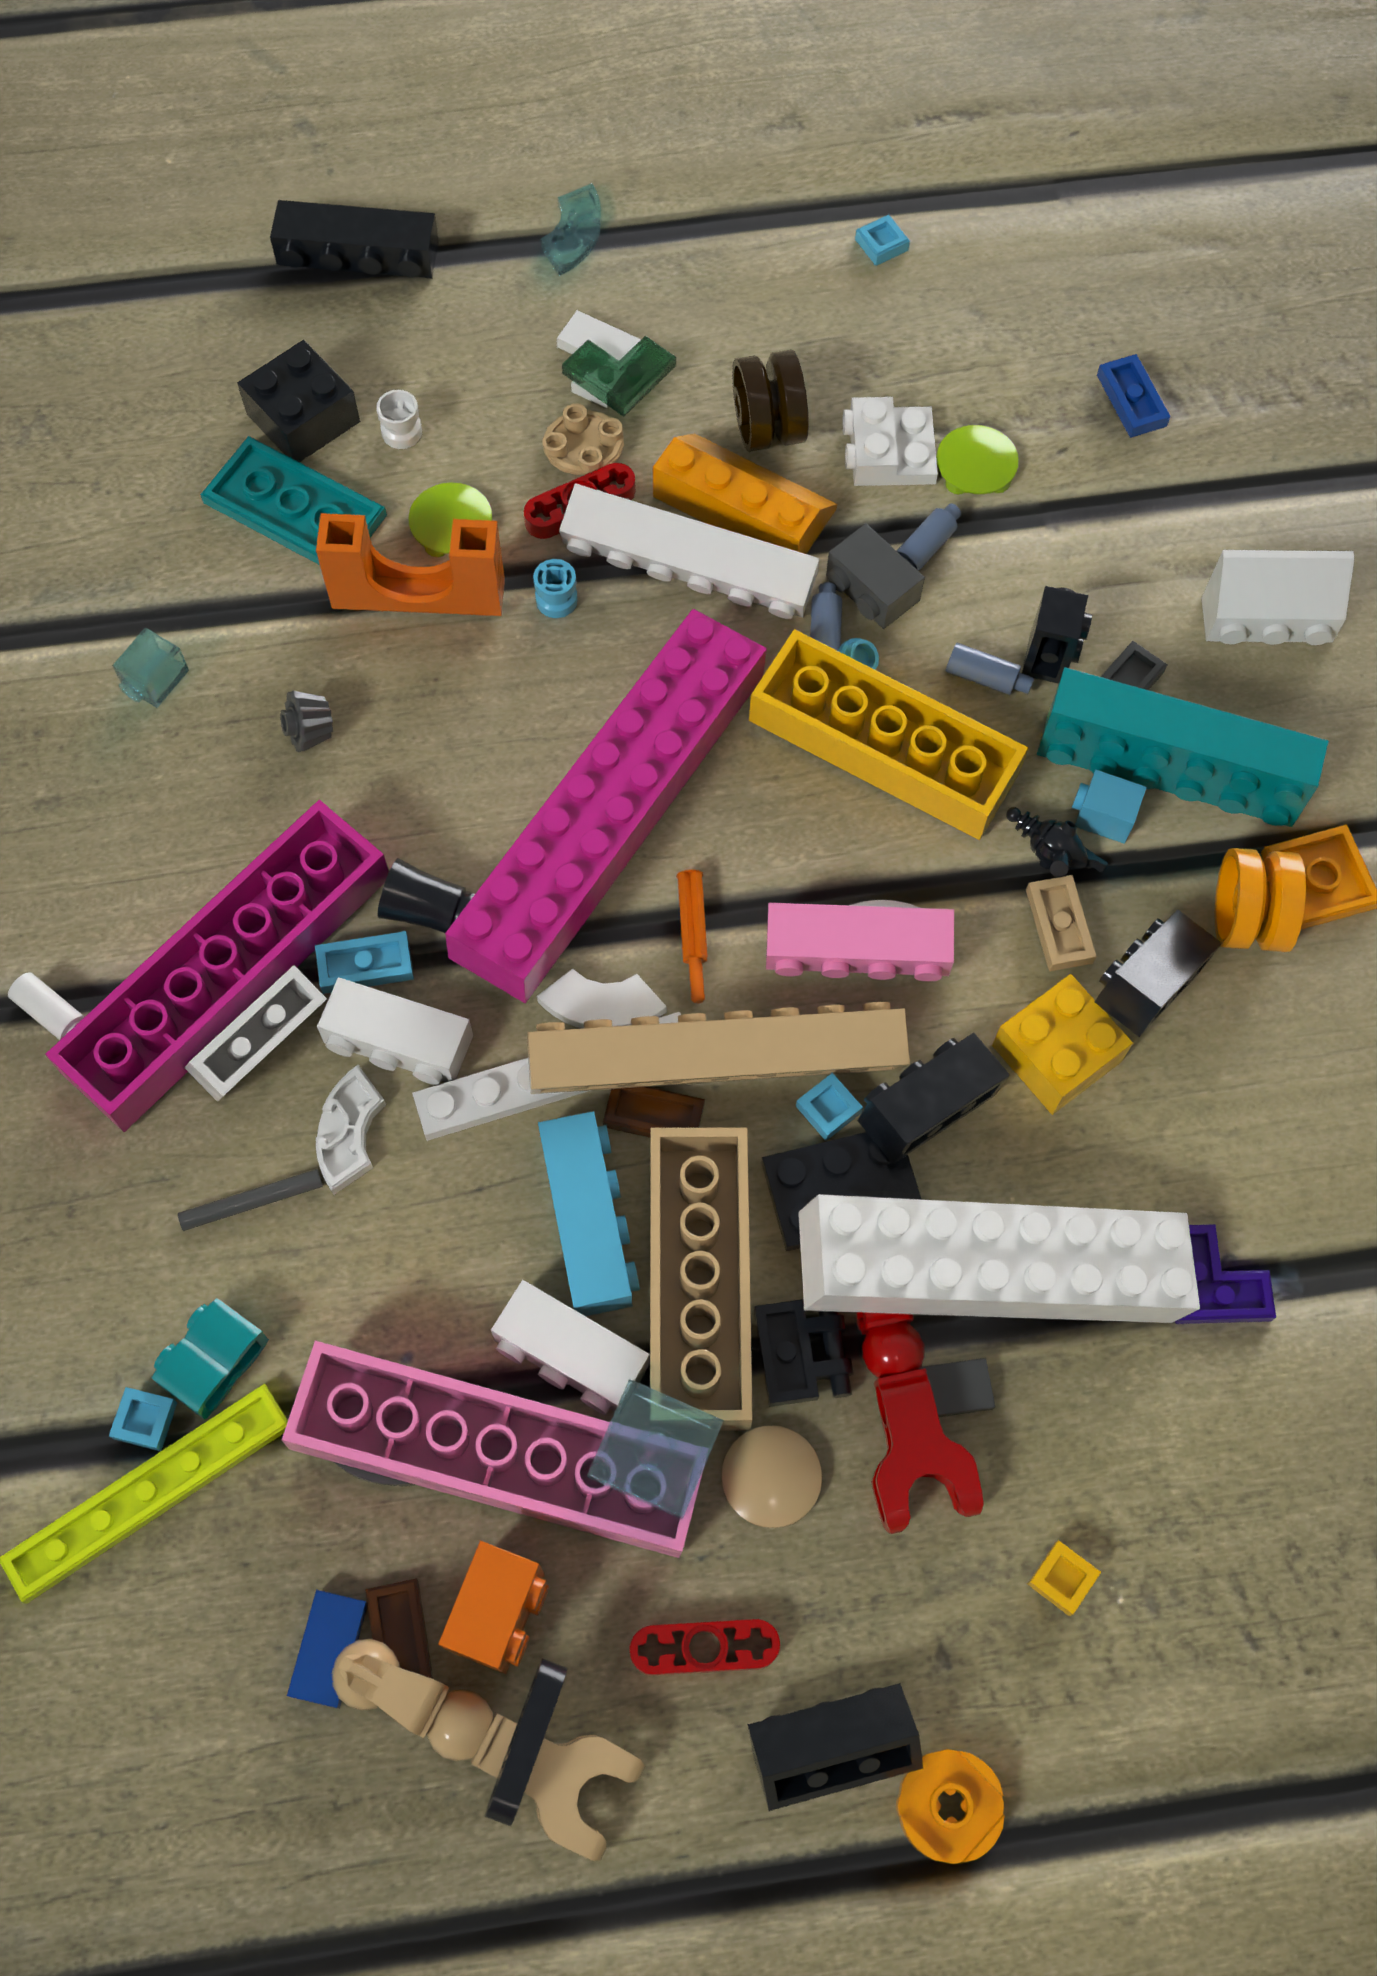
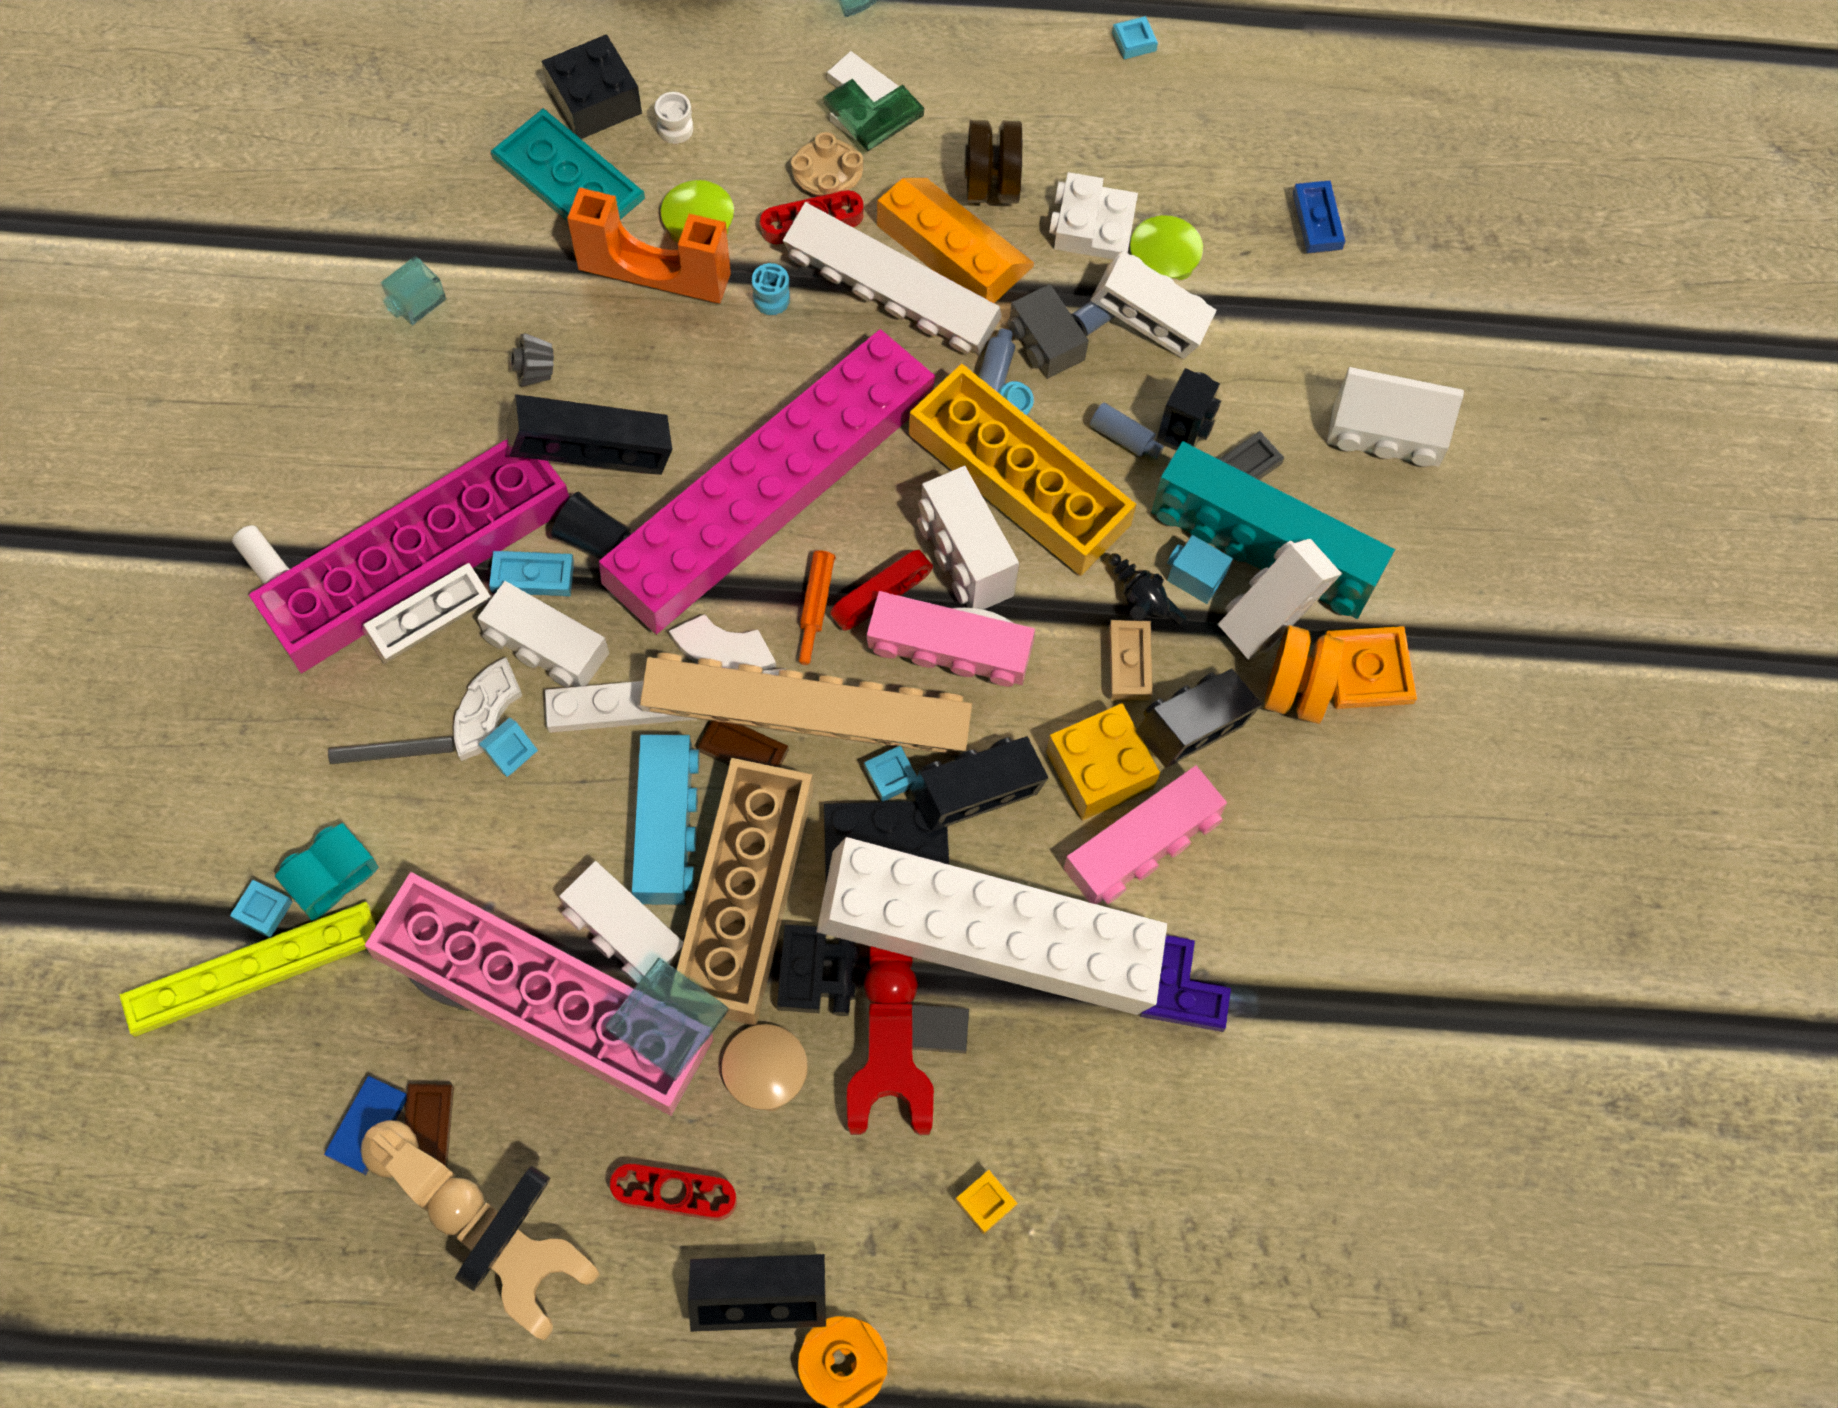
camera: 10 degrees right, 0 degrees up
(386, 1168) = (508, 747): none -> medium azure plate
(394, 791) = (588, 434): none -> black brick
(495, 1608) = (506, 1120): orange brick -> none
(753, 911) = (893, 580): none -> red beam
(850, 825) = (967, 540): none -> white brick
(984, 524) = (1153, 304): none -> white brick
(1129, 1118) = (1145, 836): none -> bright pink brick
(1211, 819) = (1278, 597): none -> white brick

